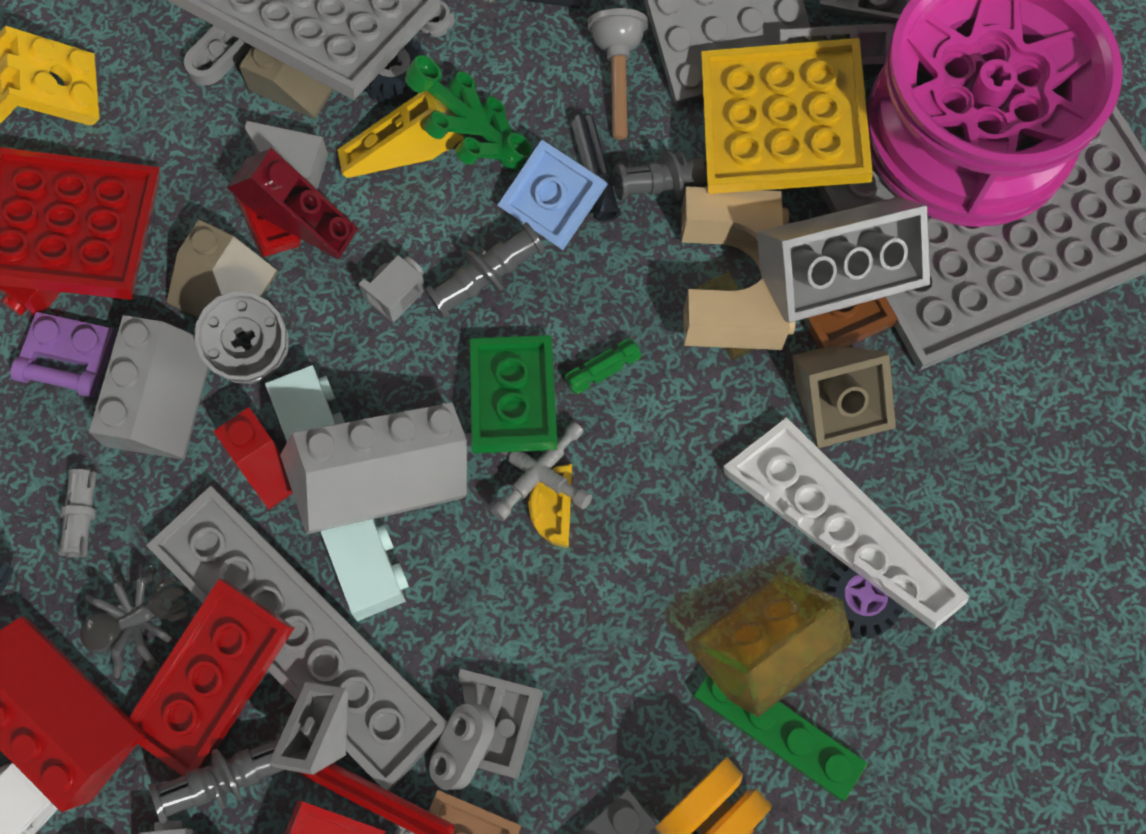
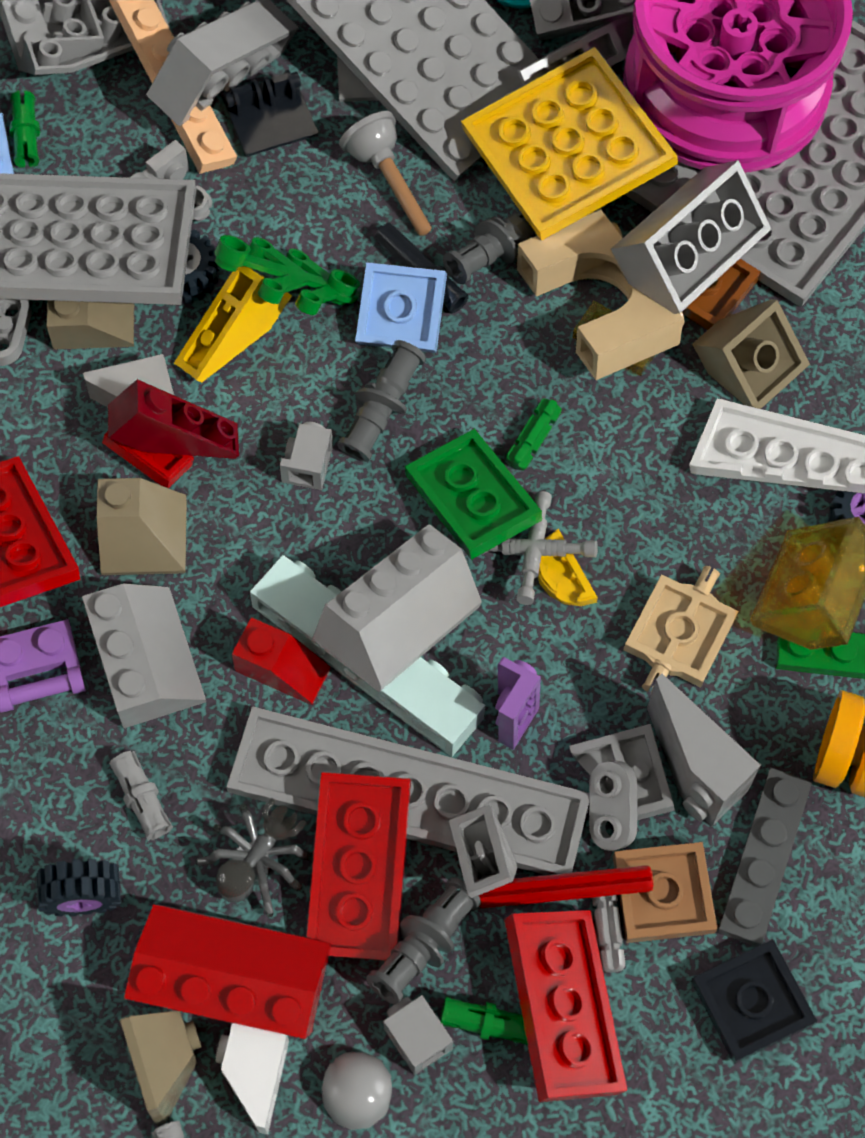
camera: 30 degrees left, 5 degrees down
(218, 330) = (221, 543): light grey wheel -> none
(429, 611) = (517, 701): none -> medium lavender bracket
(560, 754) = (703, 759): none -> light grey slope
(624, 616) = (681, 629): none -> tan plate

